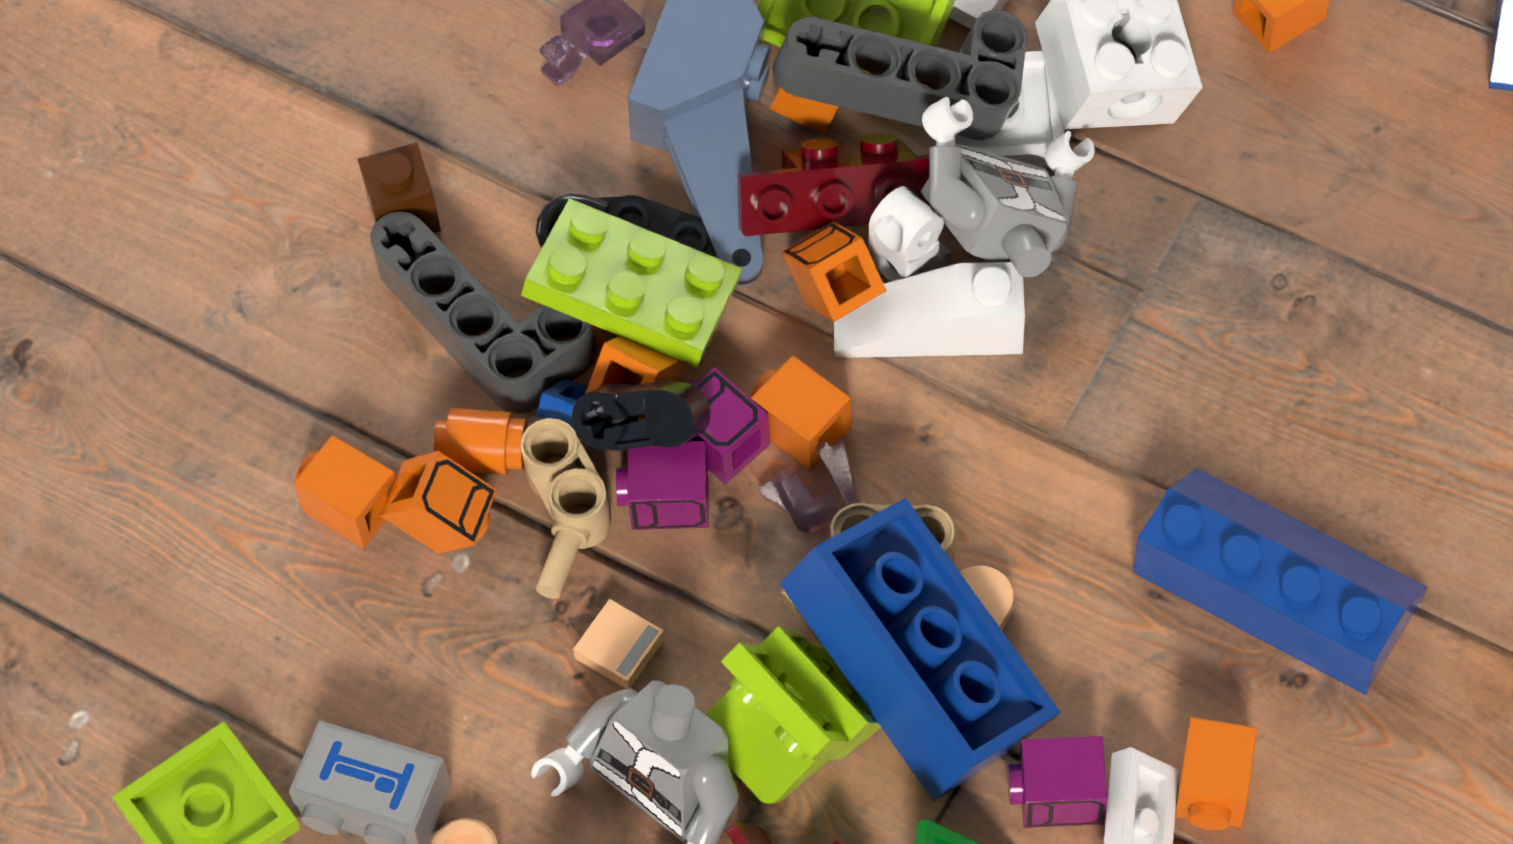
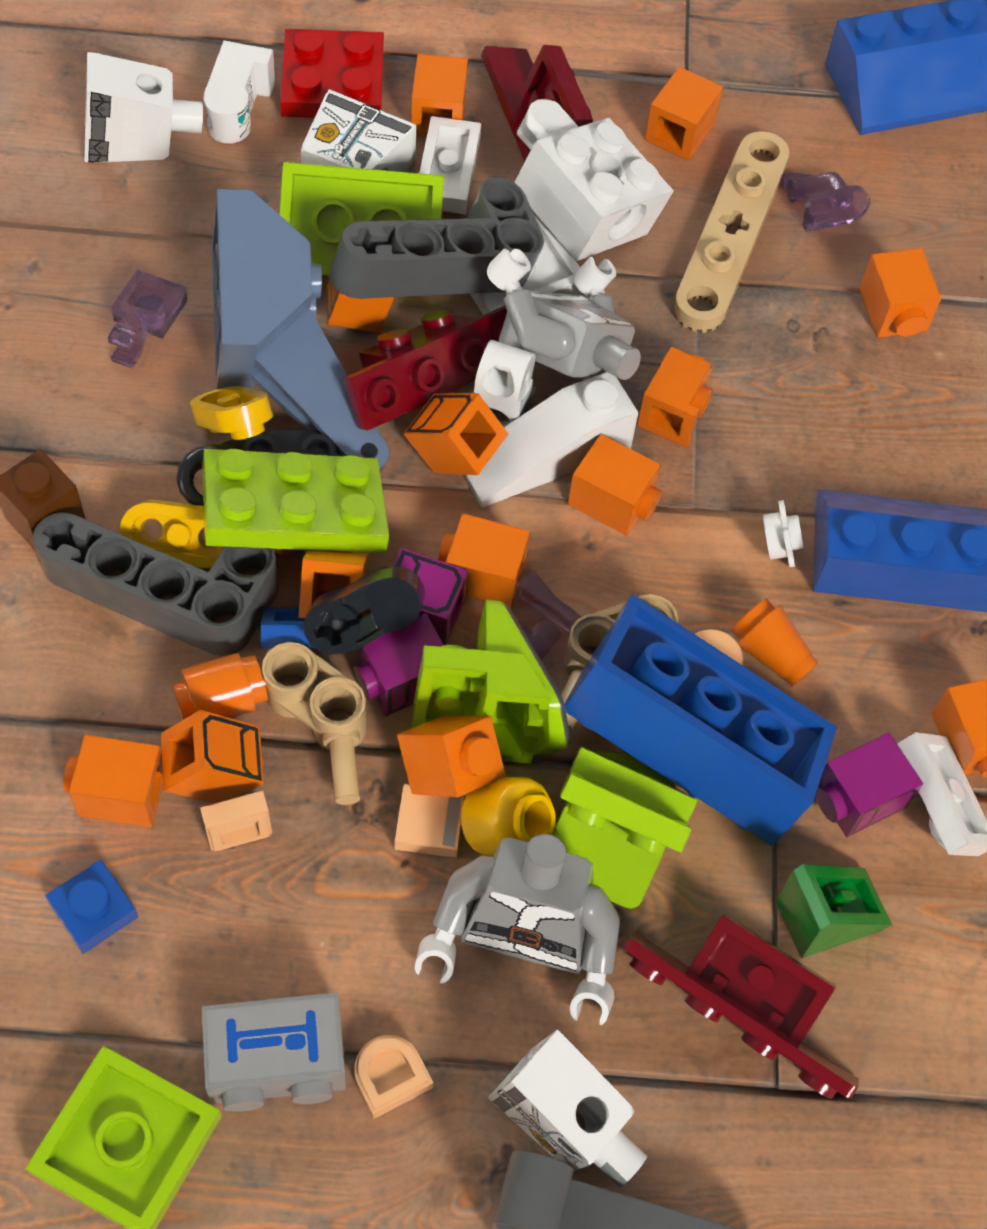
camera: 35 degrees left, 0 degrees up
(274, 597) = (91, 906): none -> blue plate
(436, 571) = (237, 821): none -> light nougat tile
(509, 281) = (181, 534): none -> yellow plate
(622, 168) = (232, 411): none -> yellow plate
(656, 586) = (451, 755): none -> orange brick
(686, 657) = (504, 810): none -> yellow head
(723, 541) = (498, 681): none -> lime piece
(974, 384) = (615, 485): none -> orange brick
(1052, 605) = (774, 642): none -> orange cone
(1093, 312) = (676, 397): none -> orange brick
(1122, 500) = (782, 534): none -> white plate
(1239, 178) = (722, 256): none -> tan piece
(1395, 151) = (827, 199): none -> clear purple piece
(1408, 287) = (900, 293): none -> orange brick

